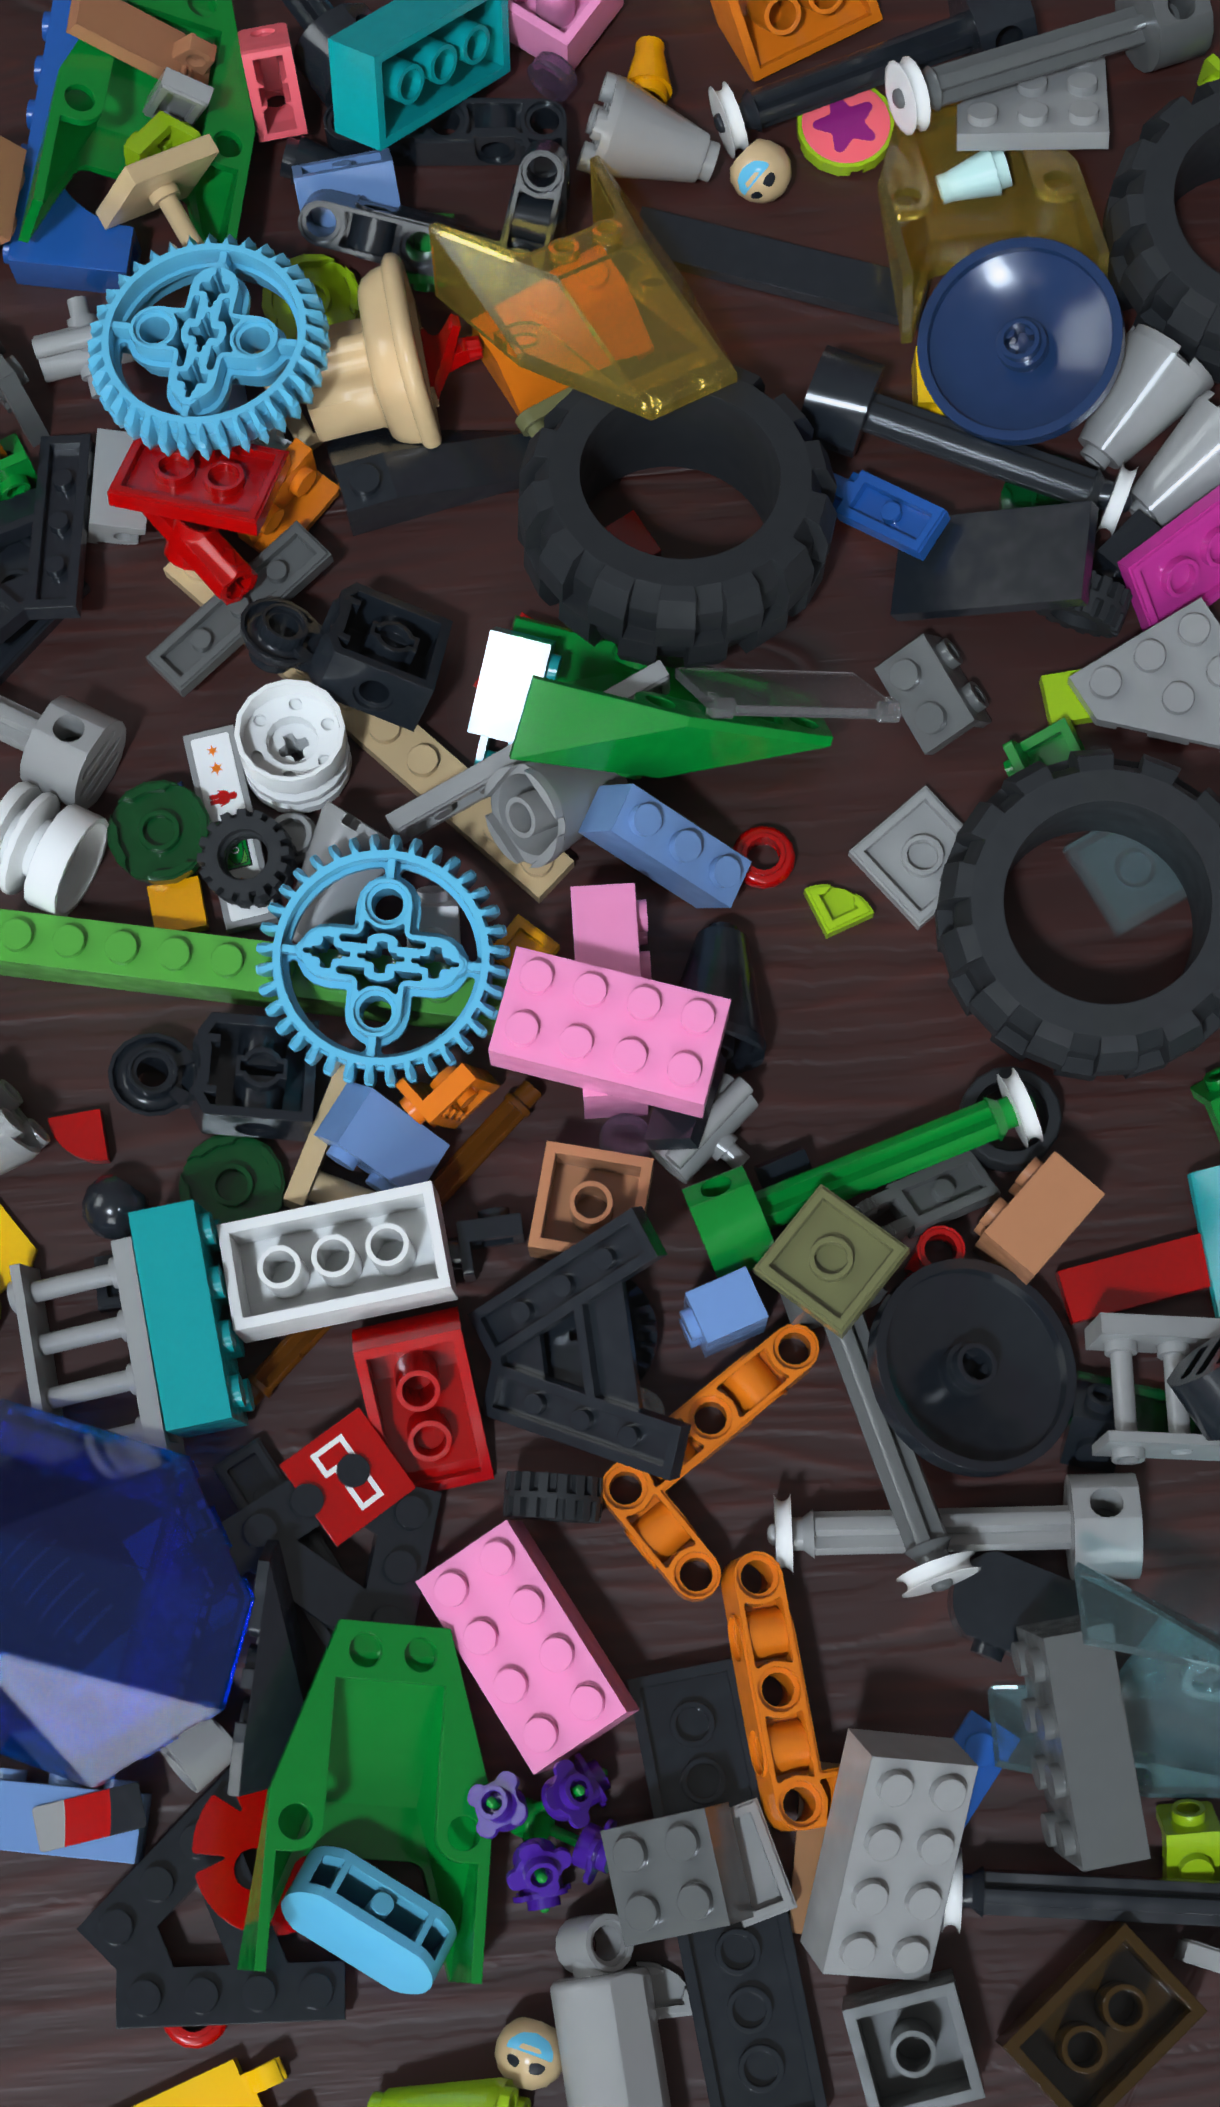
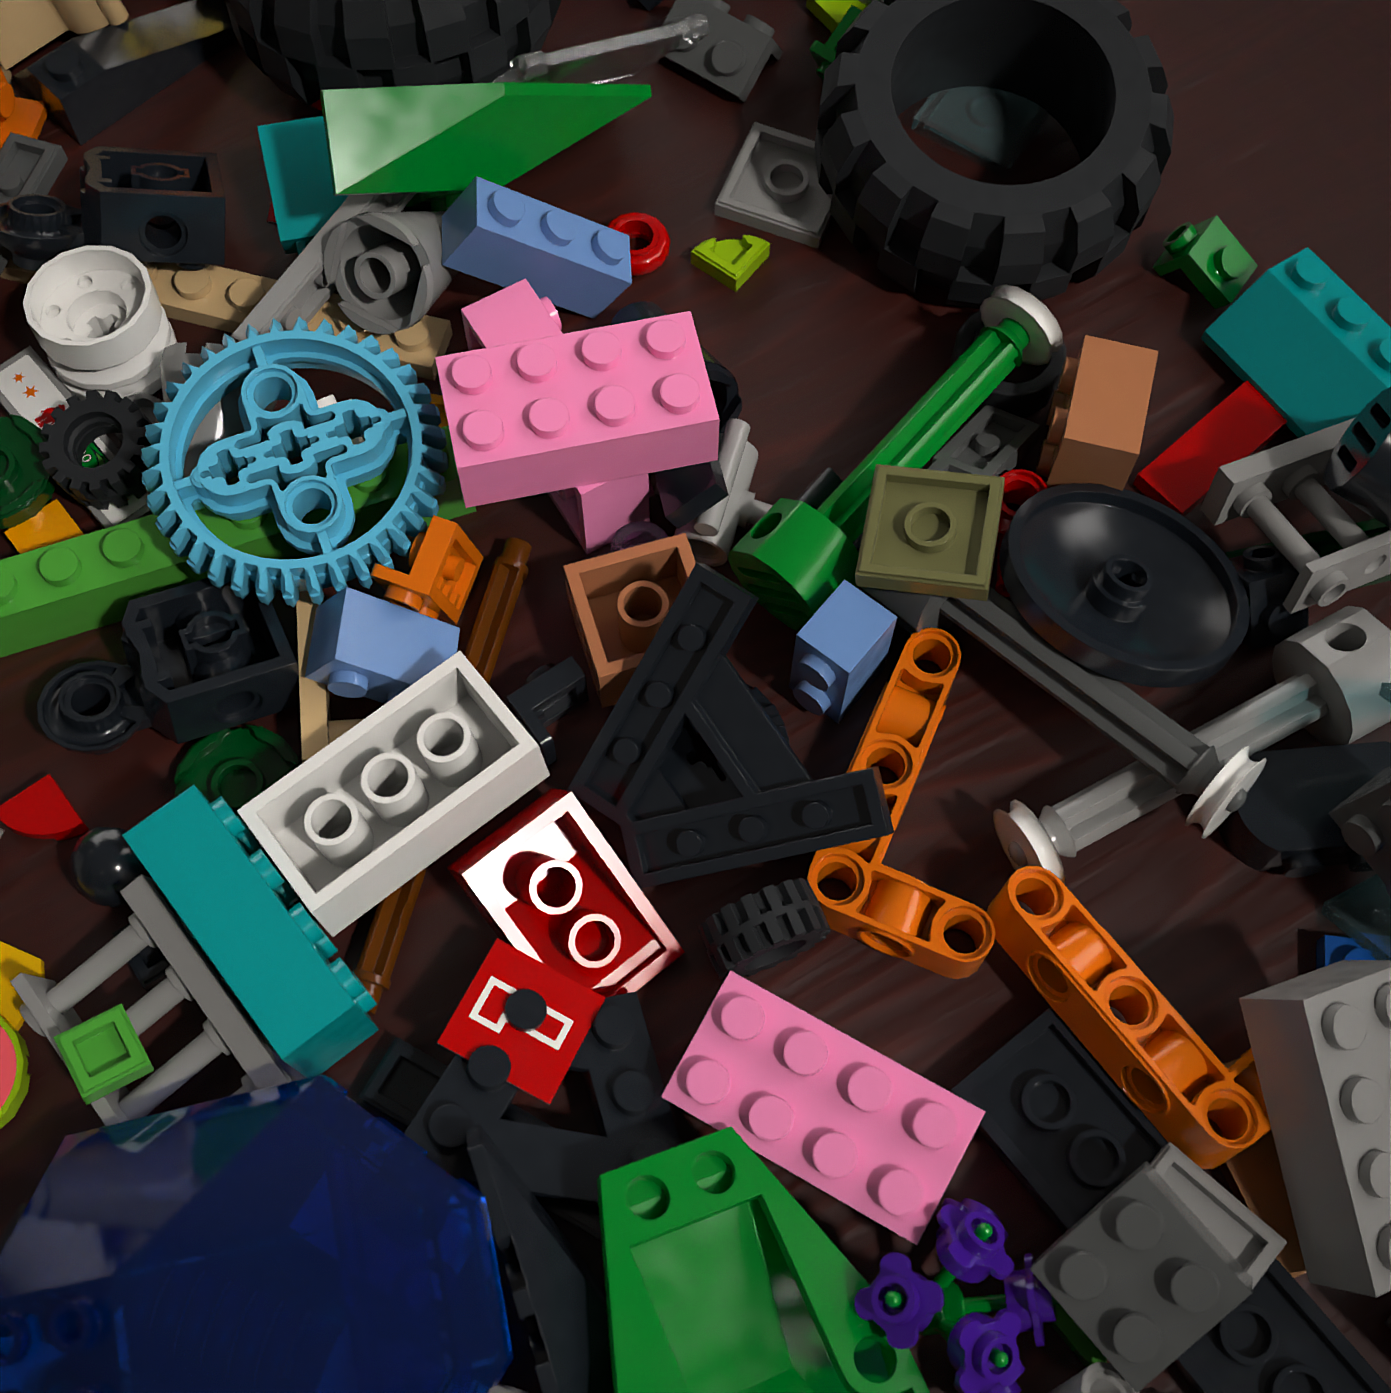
camera: 30 degrees left, 10 degrees down
(51, 1354) = (103, 1054): none -> bright green tile

